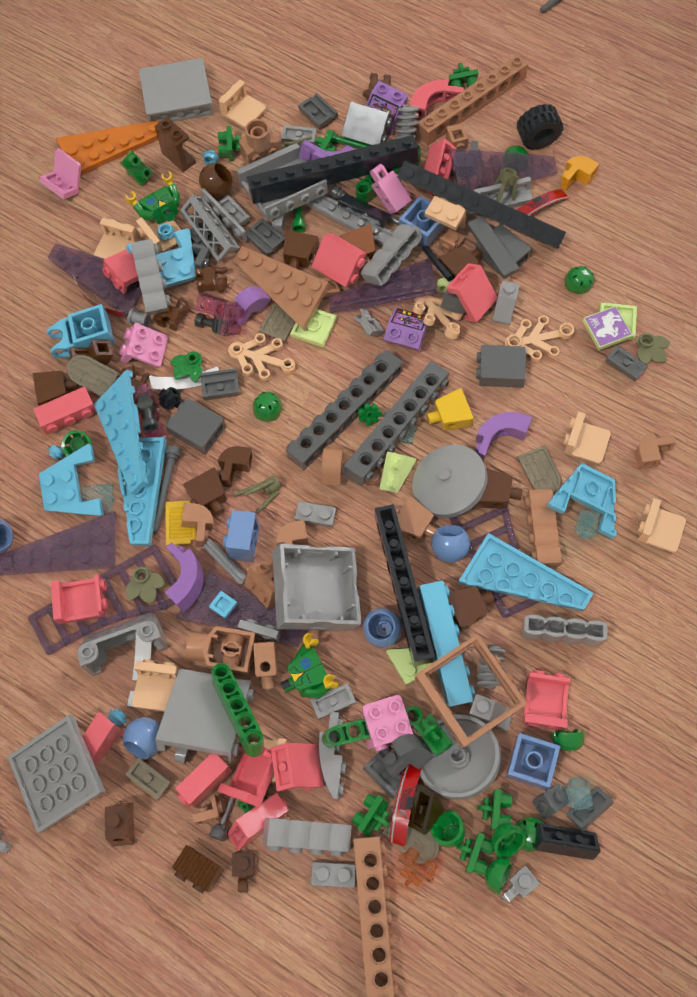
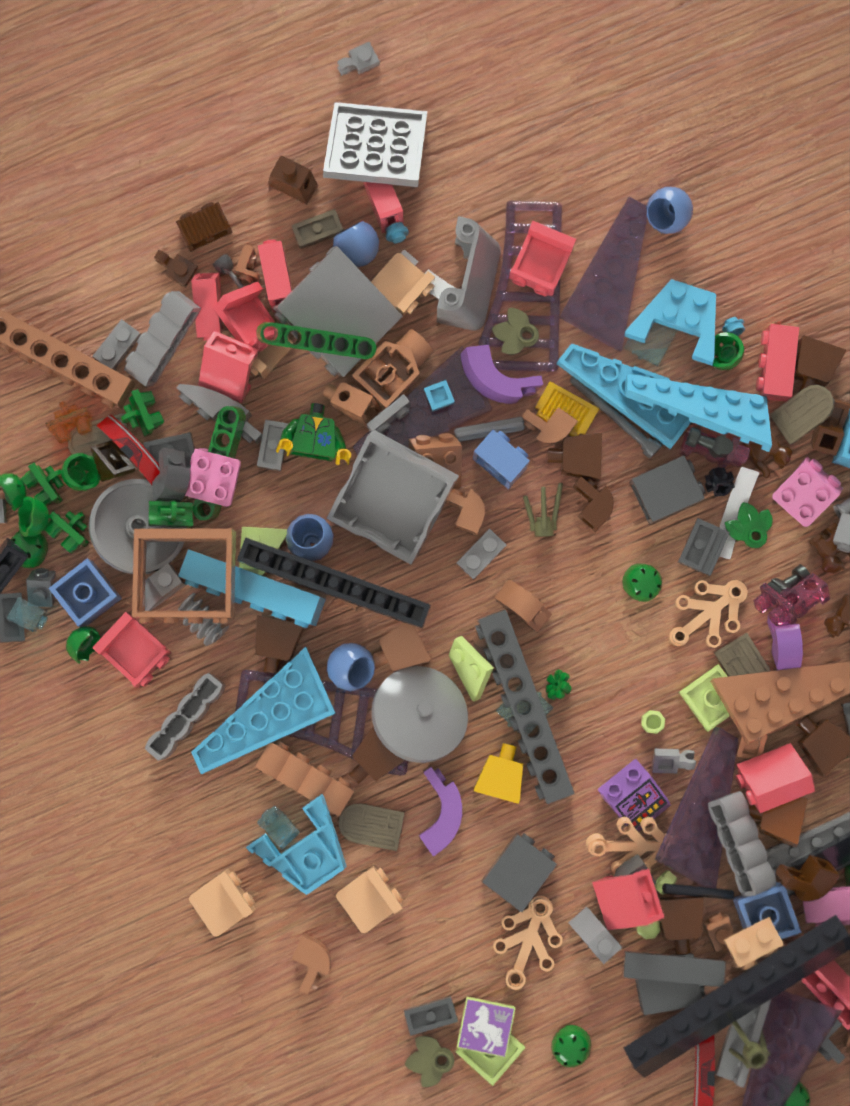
camera: 120 degrees right, 15 degrees up
(305, 456) = (552, 582): dark grey brick -> none
(352, 348) = (652, 722): none -> yellowish green tile
(386, 207) = (811, 881): none -> reddish brown brick

